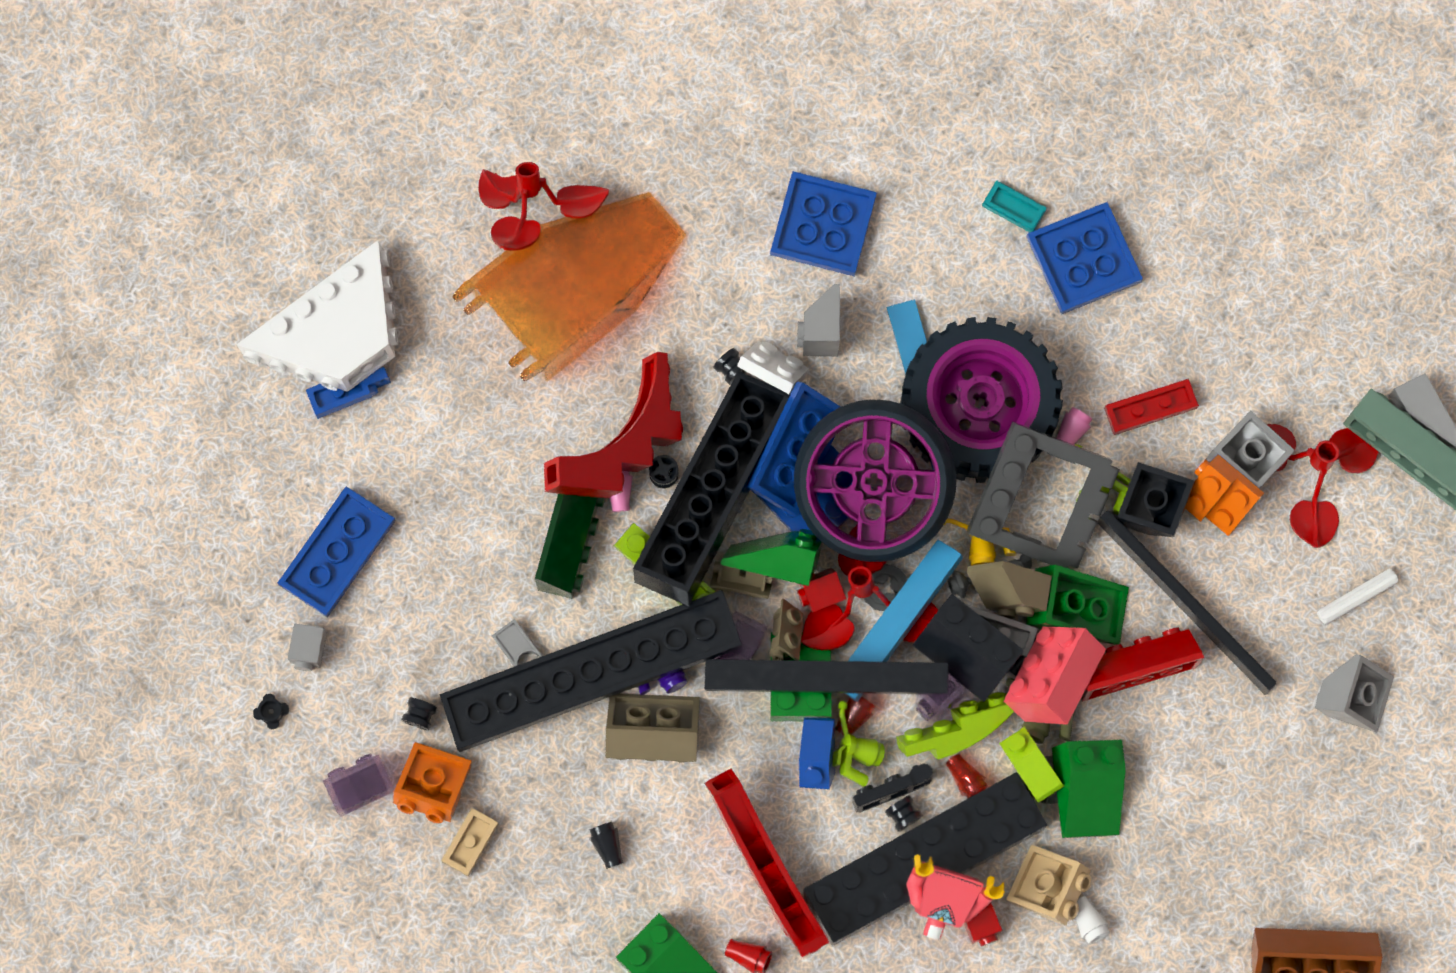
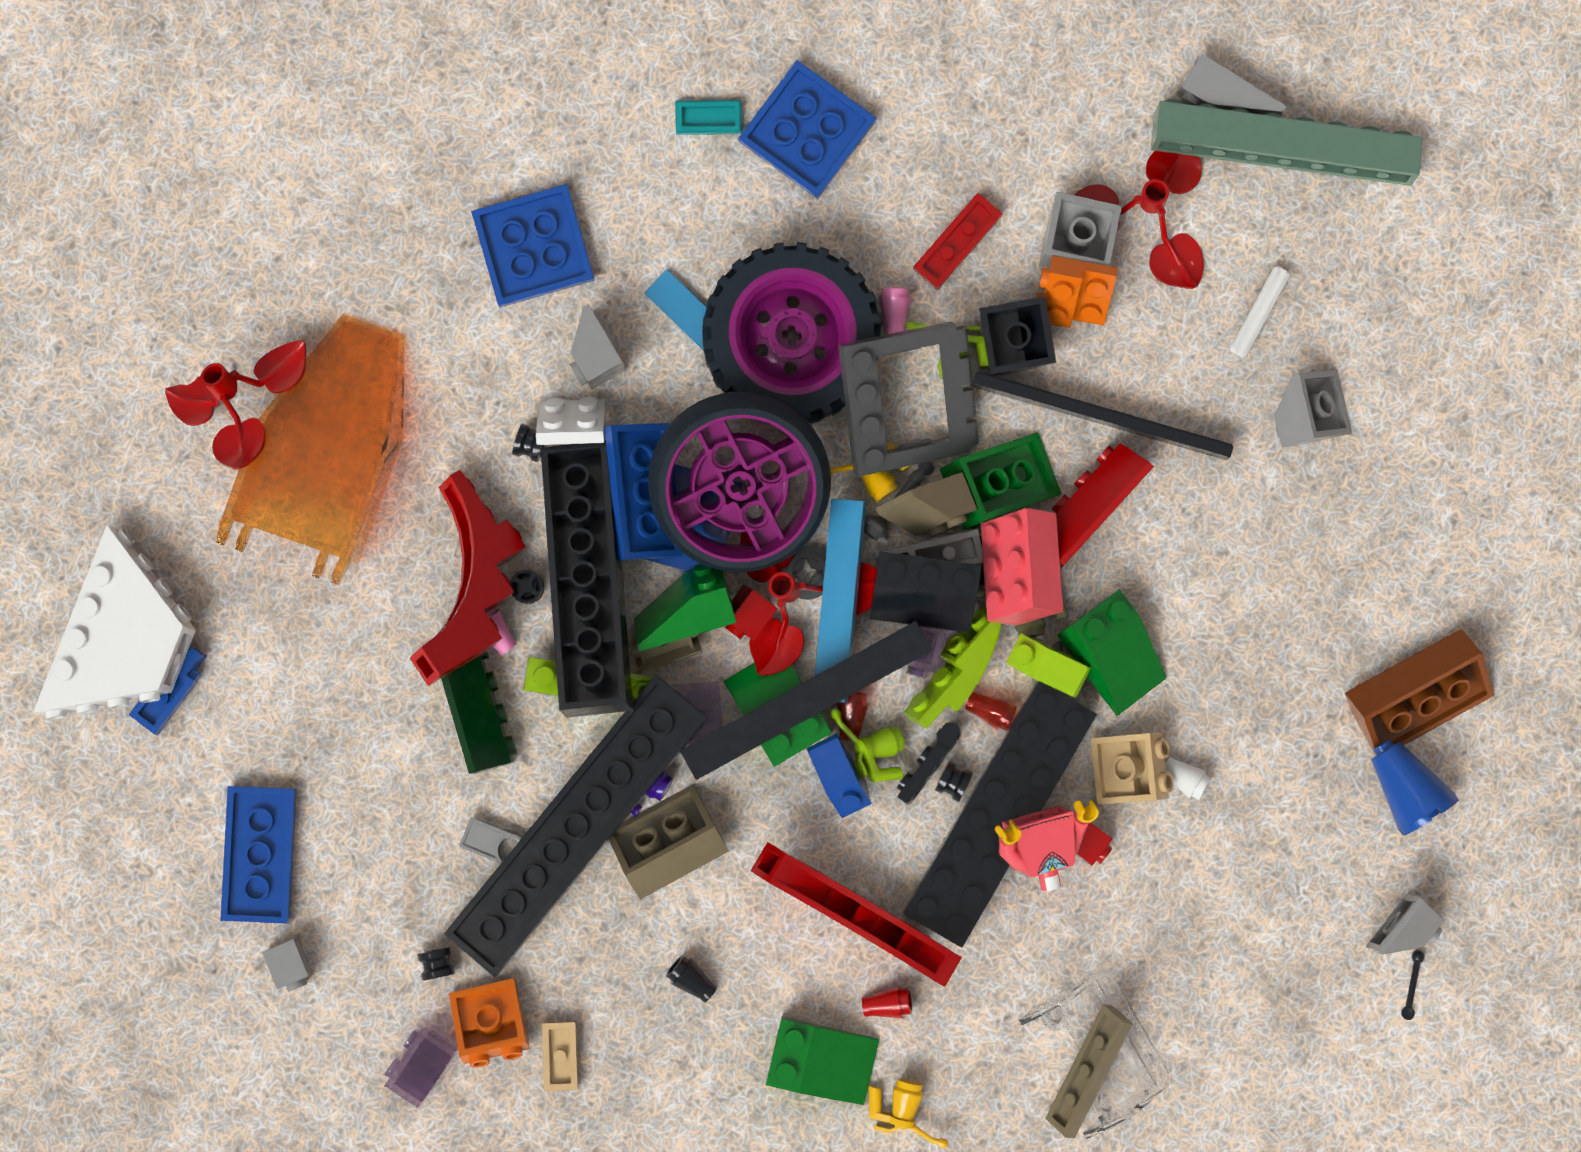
camera: 30 degrees left, 10 degrees up
(267, 703) = (284, 1052): black plate -> none
(787, 632) = (739, 669): dark tan hinge -> none

